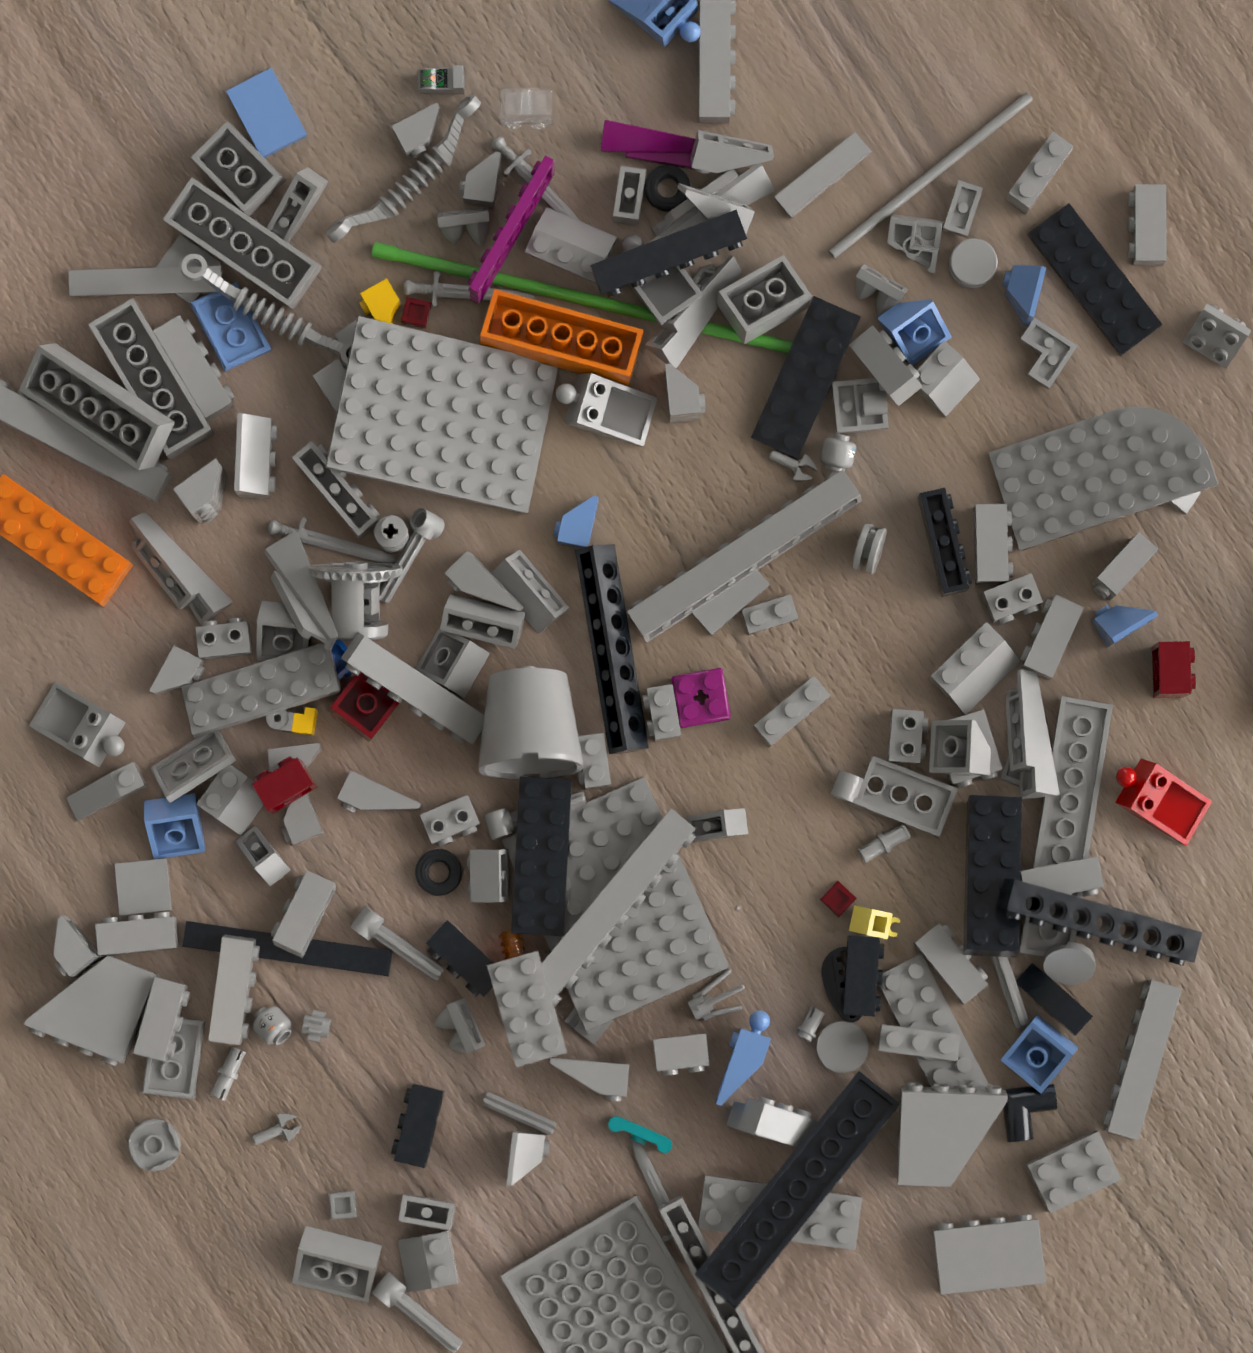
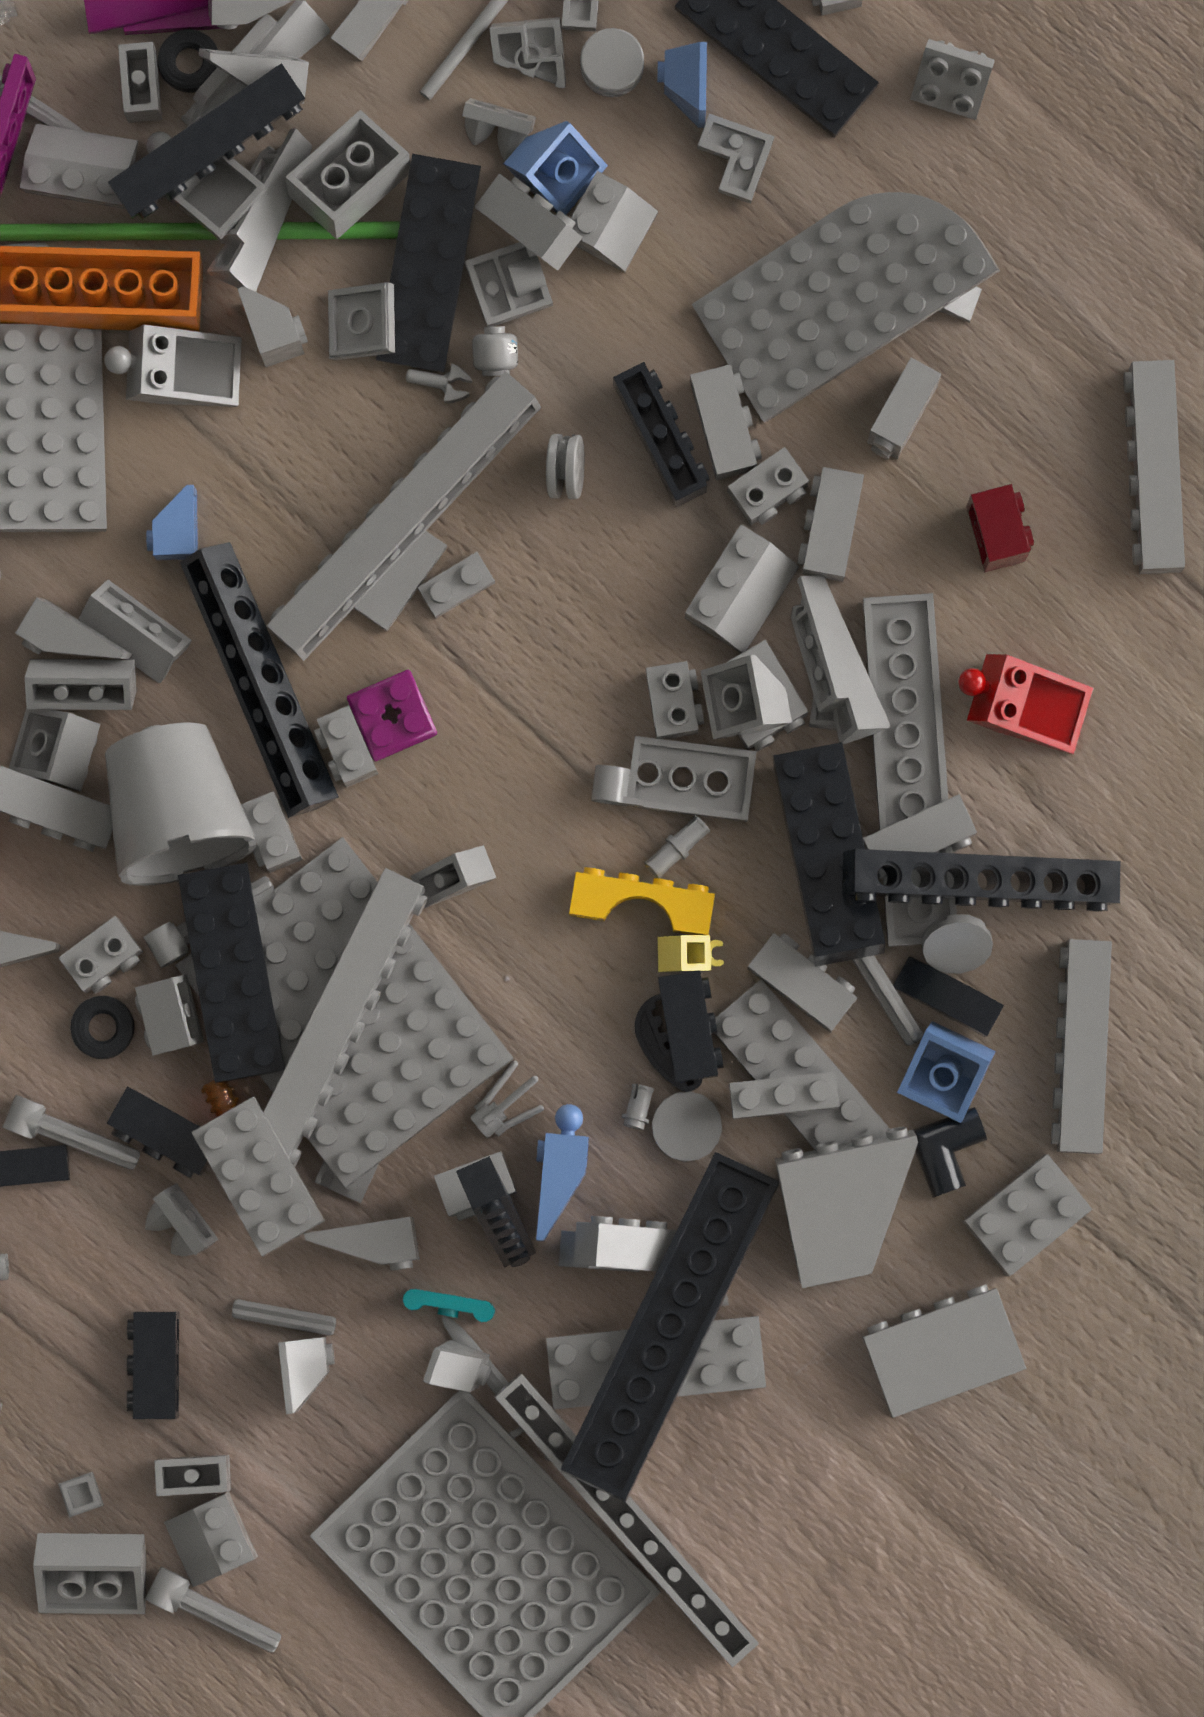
camera: 10 degrees left, 0 degrees up
(636, 1181) = (457, 1367): none -> light grey slope
(693, 1078) = (496, 1212): none -> black brick
(747, 407) = (361, 321): none -> light grey plate
(791, 711) = (514, 703): light grey brick -> none
(838, 899) = (635, 934): dark red tile -> none
(880, 890) = (598, 895): none -> yellow arch
(1120, 622) = (917, 482): medium blue slope -> none

